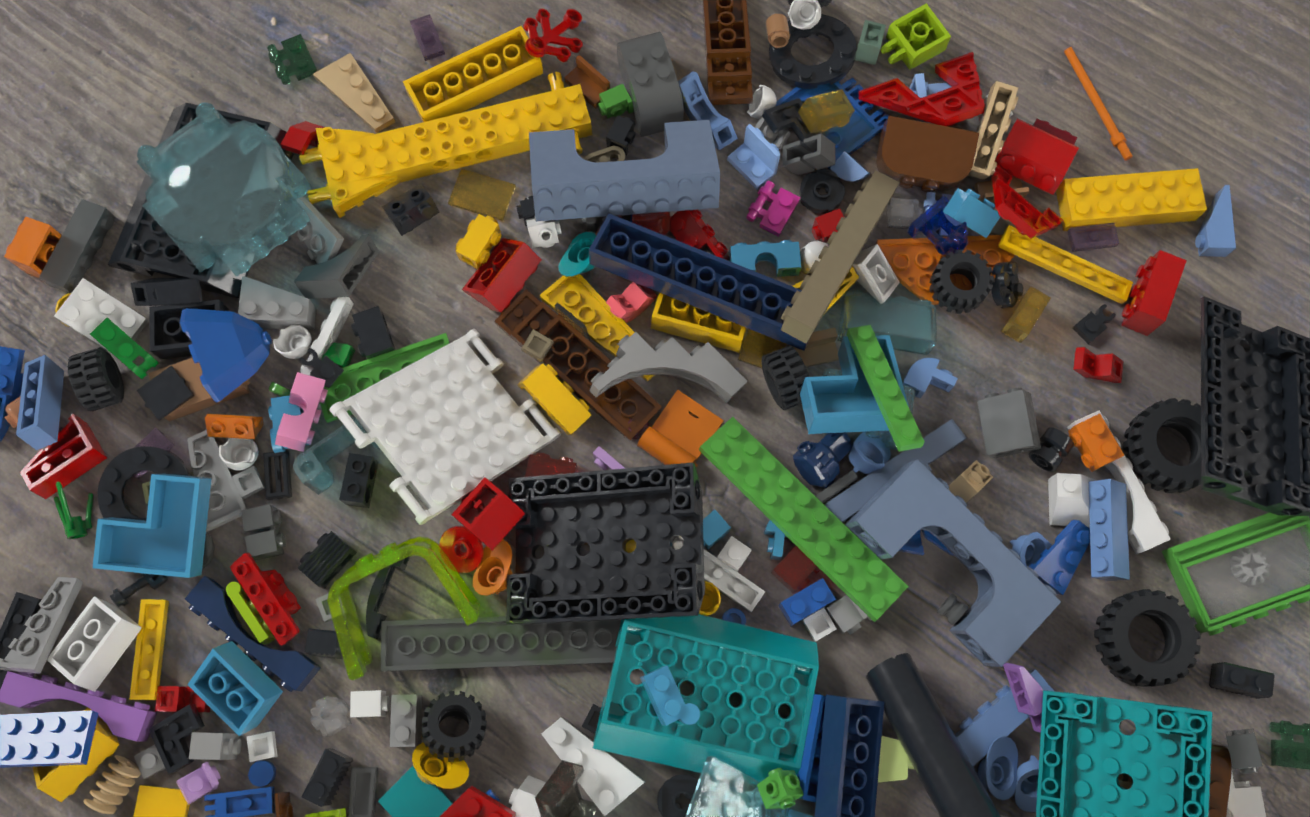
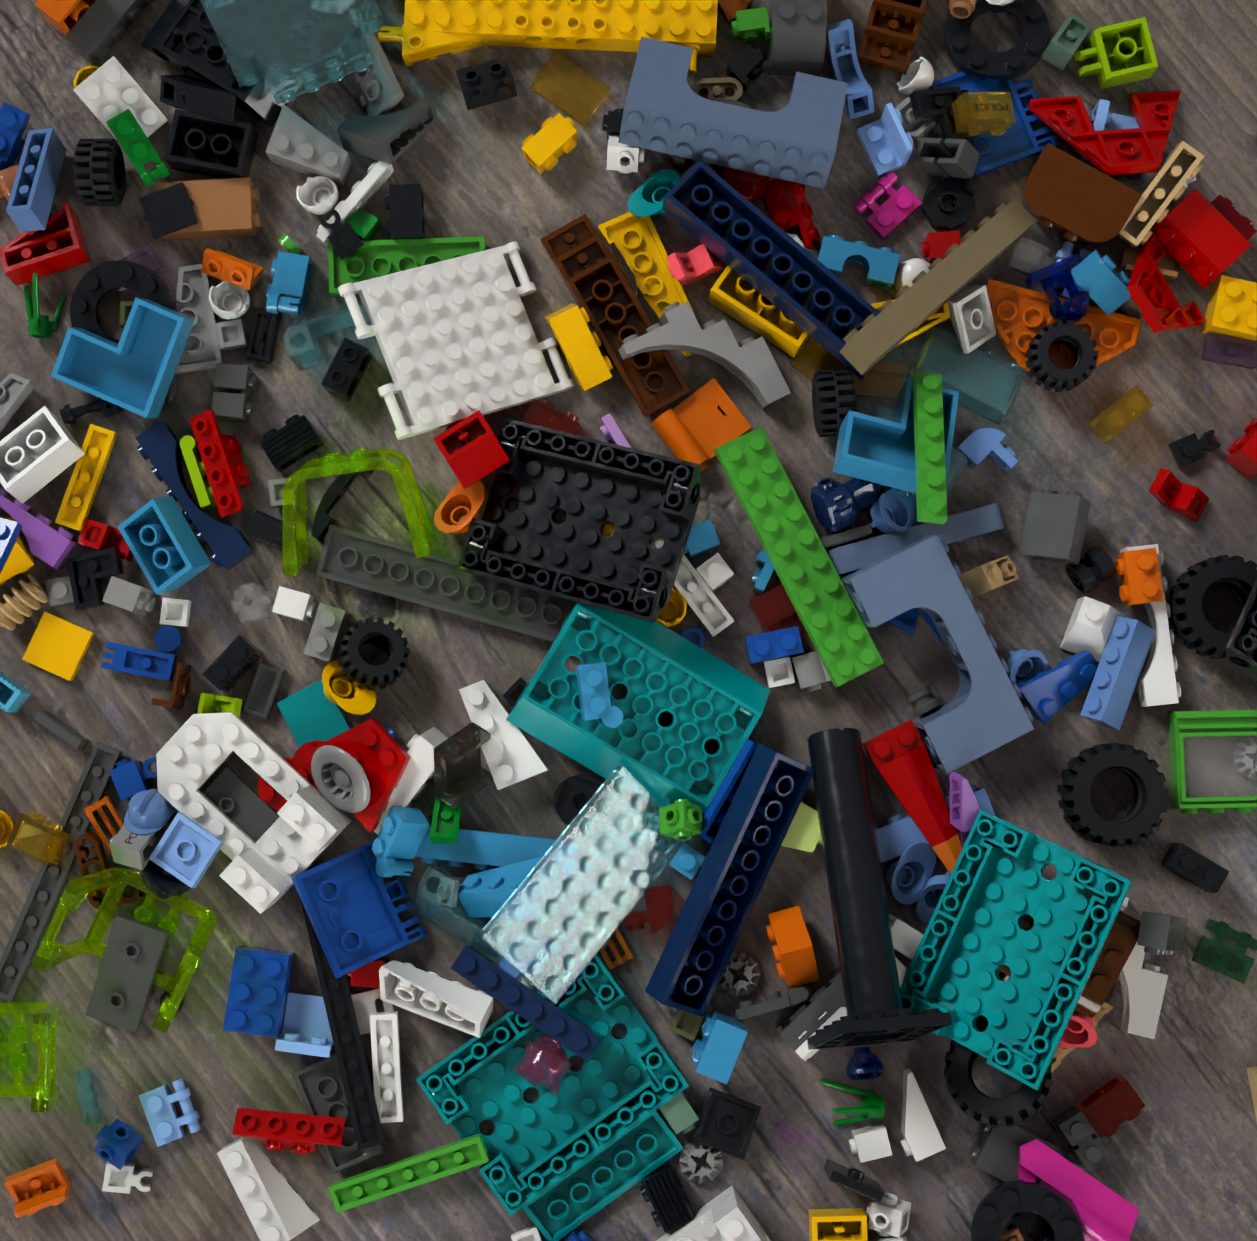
camera: 20 degrees right, 10 degrees up
(199, 782) = (104, 627): lavender bracket -> none
(226, 348) = (246, 181): blue brick -> none
(296, 430) = (296, 296): bright pink arch -> none
(452, 545) = (425, 468): red dish -> none
(502, 274) = (565, 189): red slope -> none
(537, 345) = (577, 283): dark tan tile -> none
(849, 168) = (988, 186): medium blue brick -> none
(965, 677) = (909, 774): none -> red plate
(1006, 286) = (1112, 375): black plate -> none
(1066, 265) = (1187, 374): yellow plate -> none

